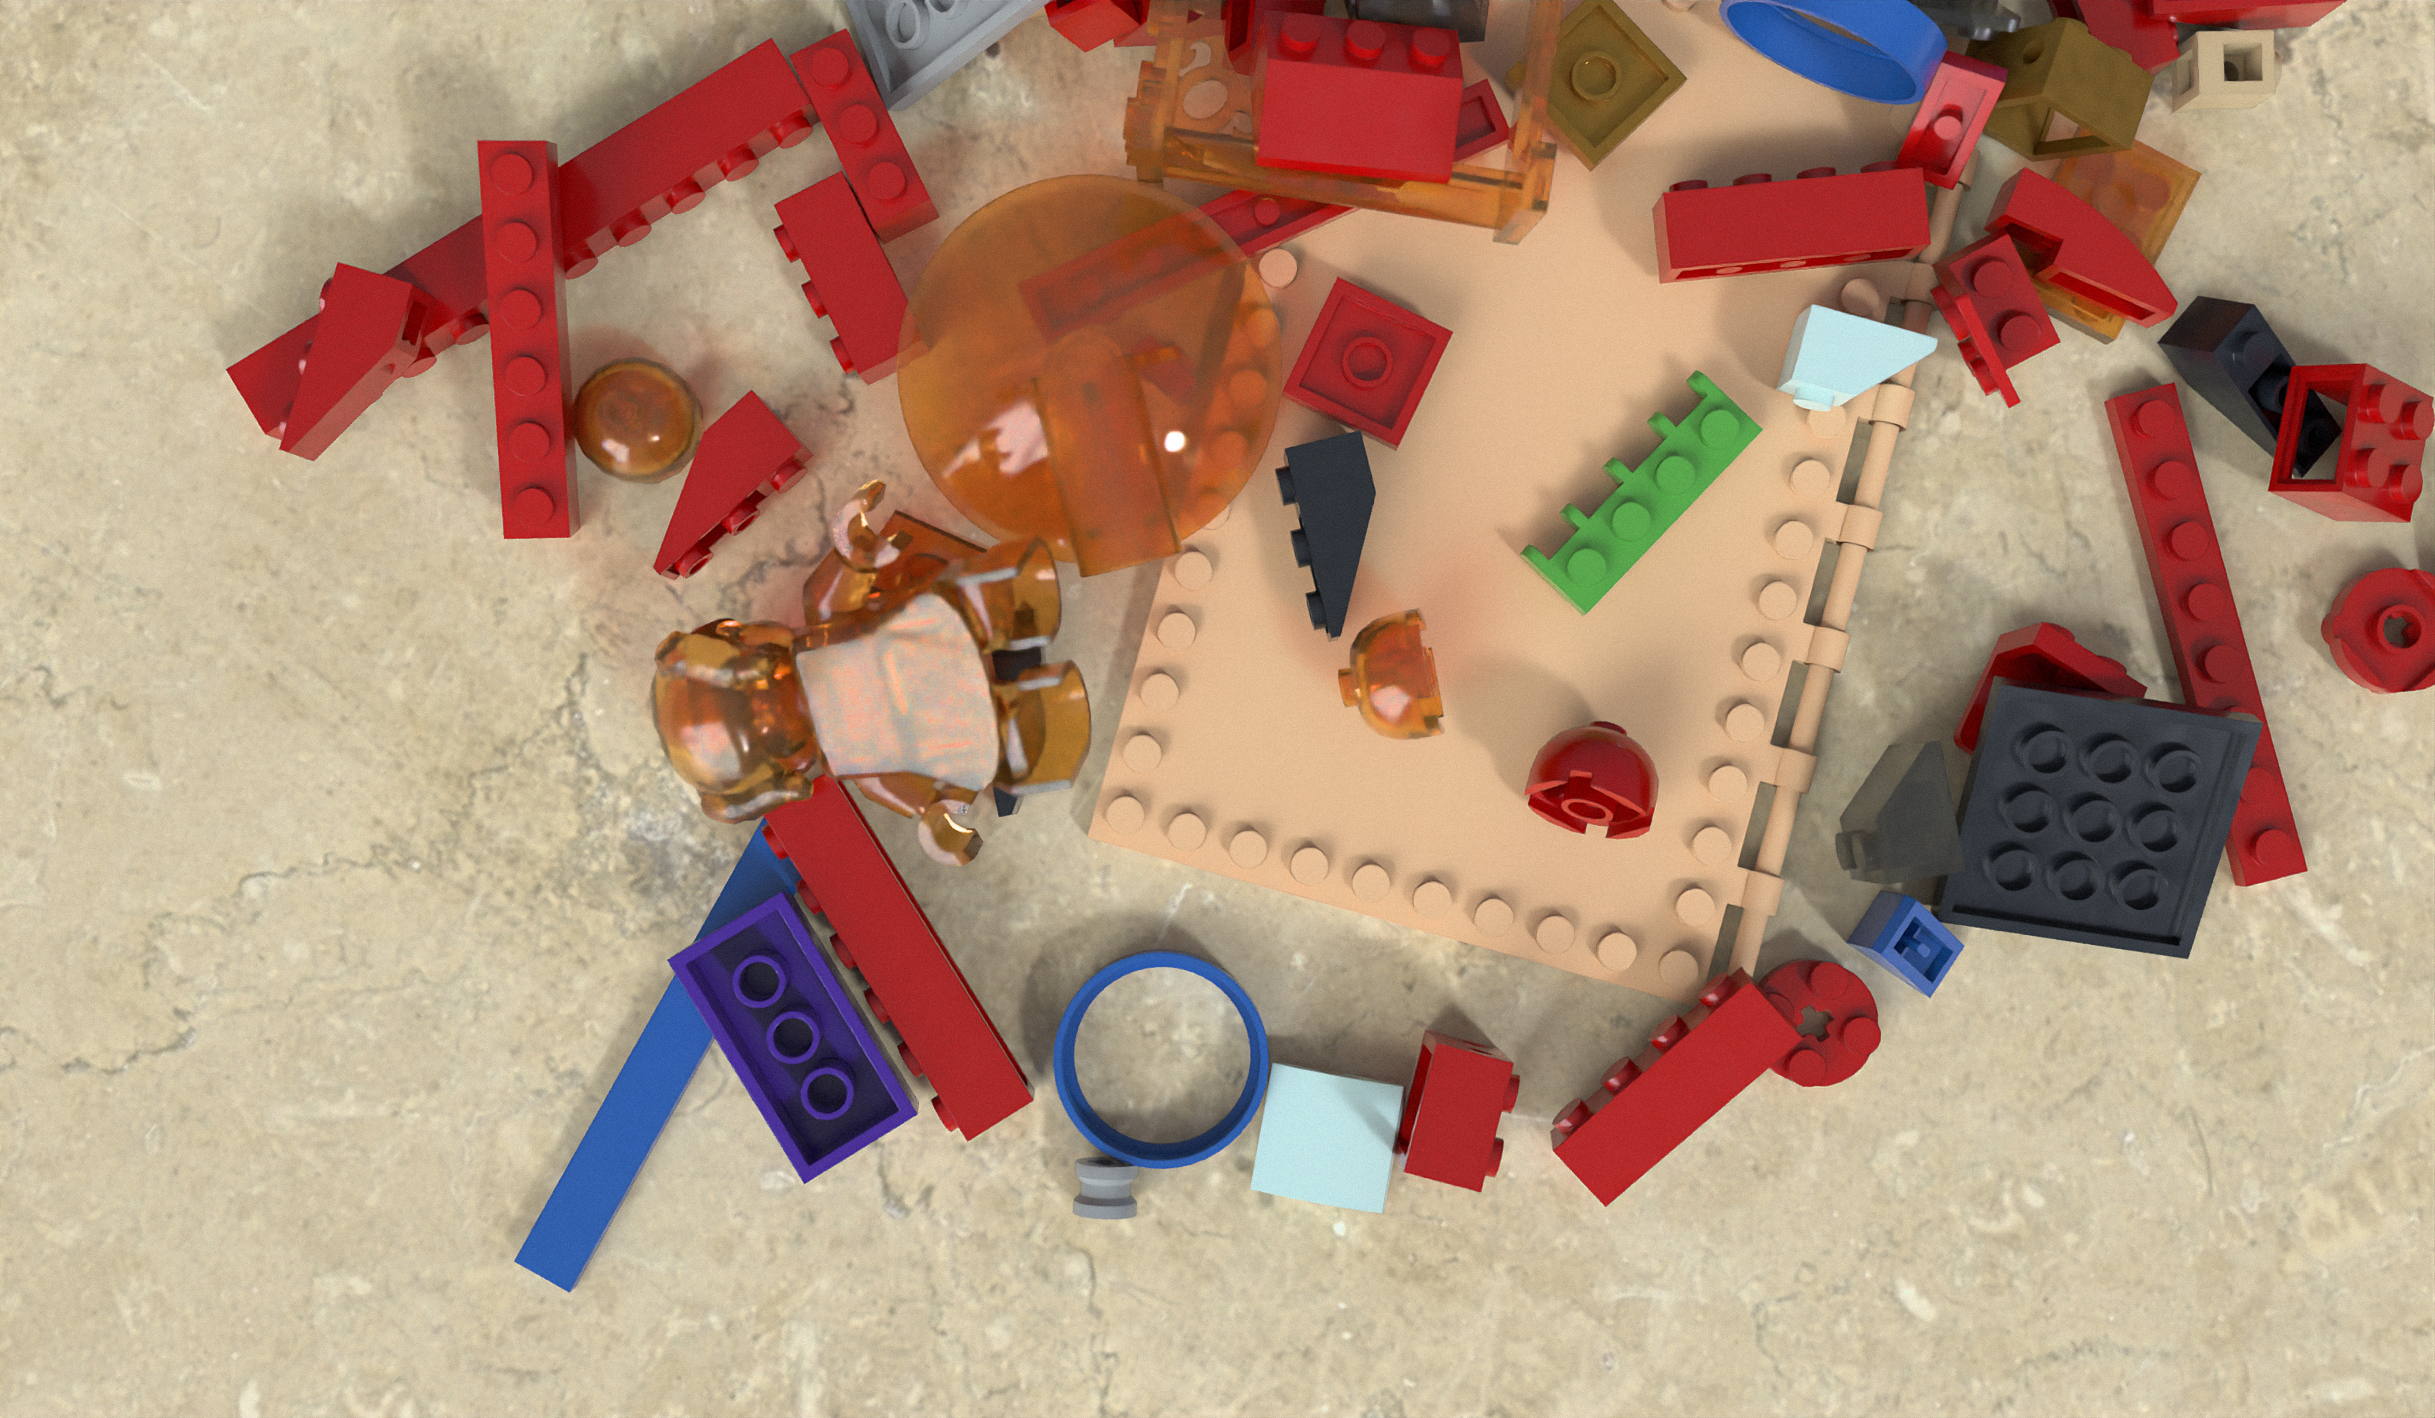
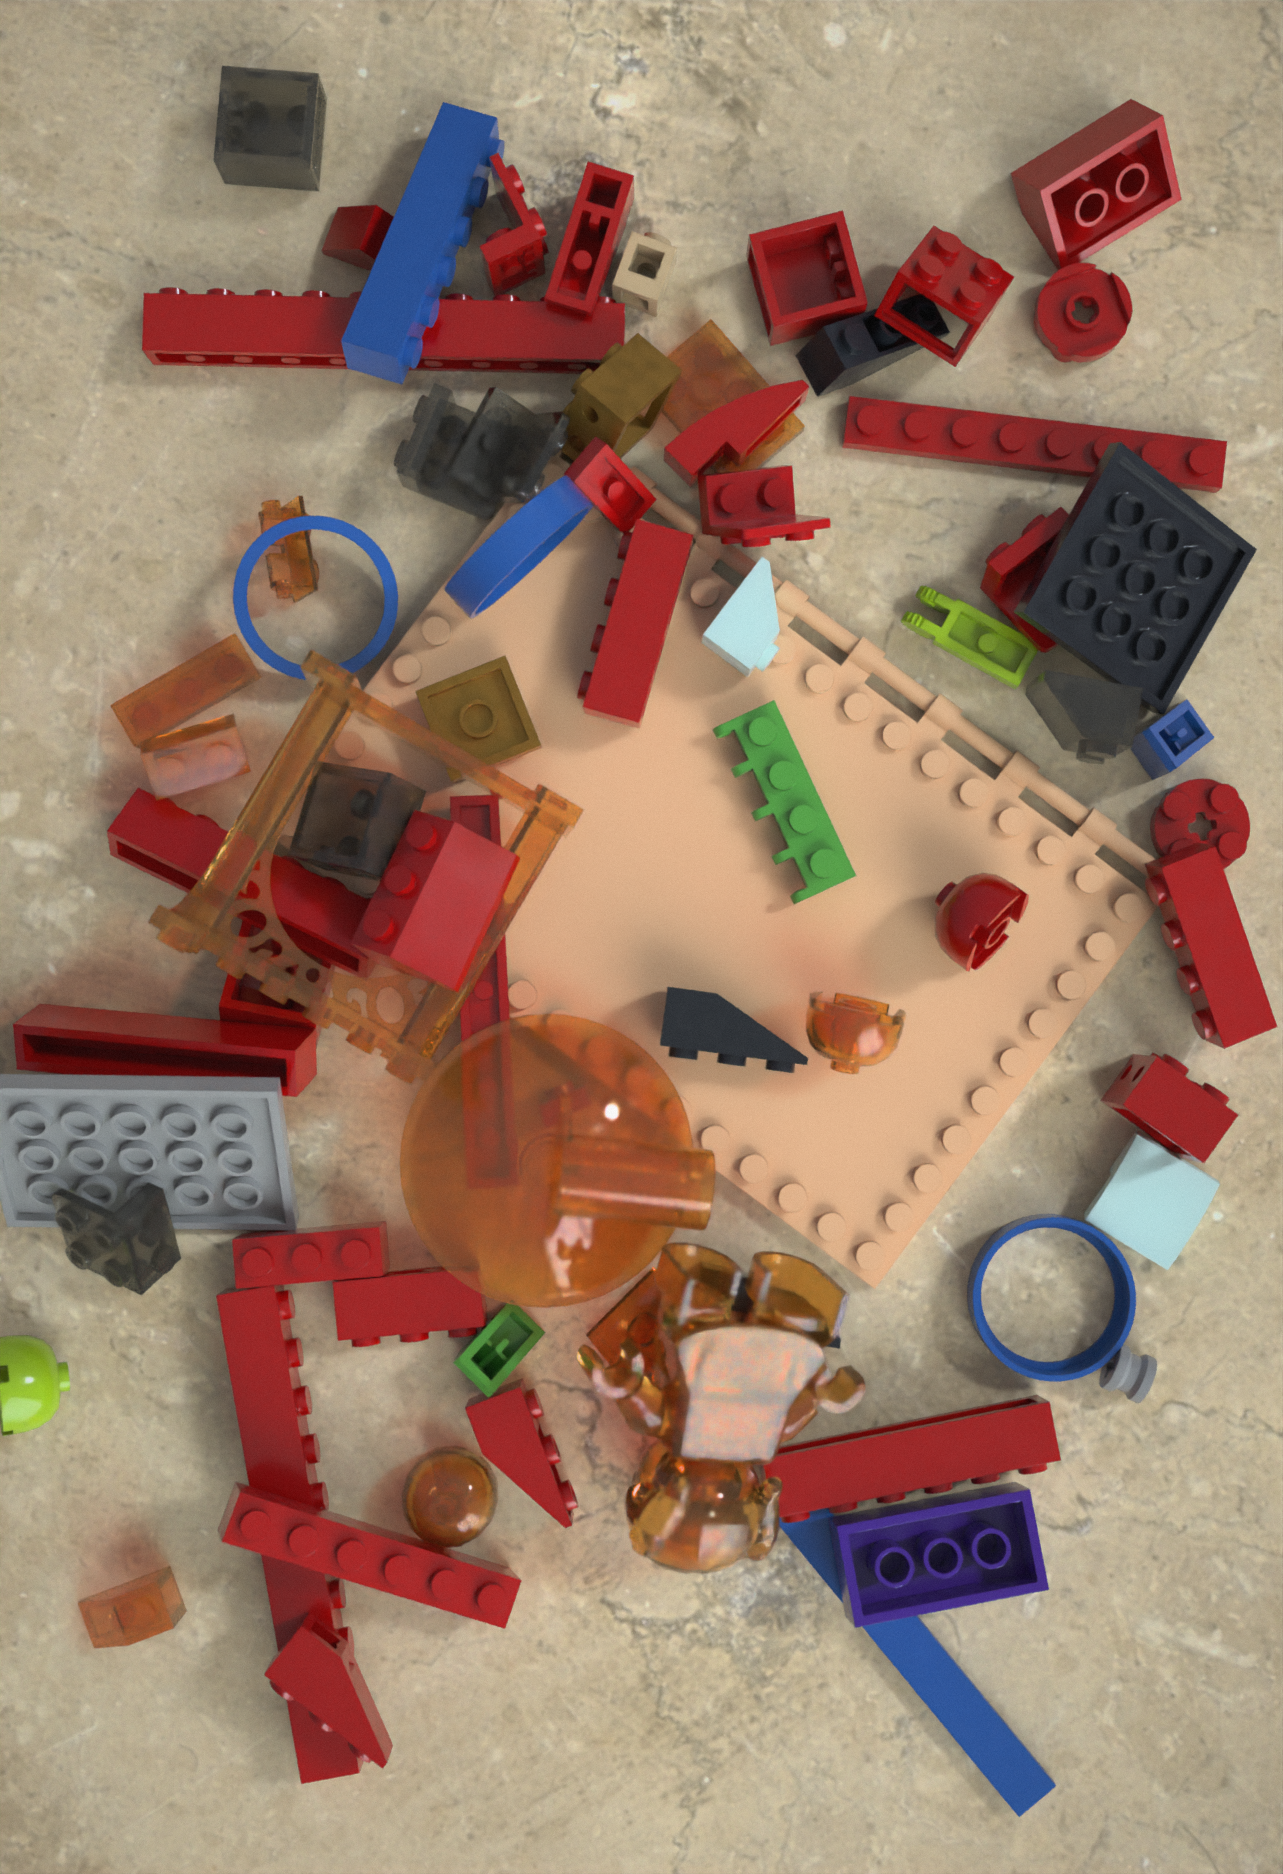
camera: 75 degrees left, 0 degrees up
(360, 96) = (133, 1610): none -> clear orange slope
(838, 405) = (498, 1348): none -> bright green slope
(1366, 363) = (618, 960): red plate -> none
(1936, 650) = (974, 637): none -> lime hinge
(2305, 263) = (805, 276): none -> red piece

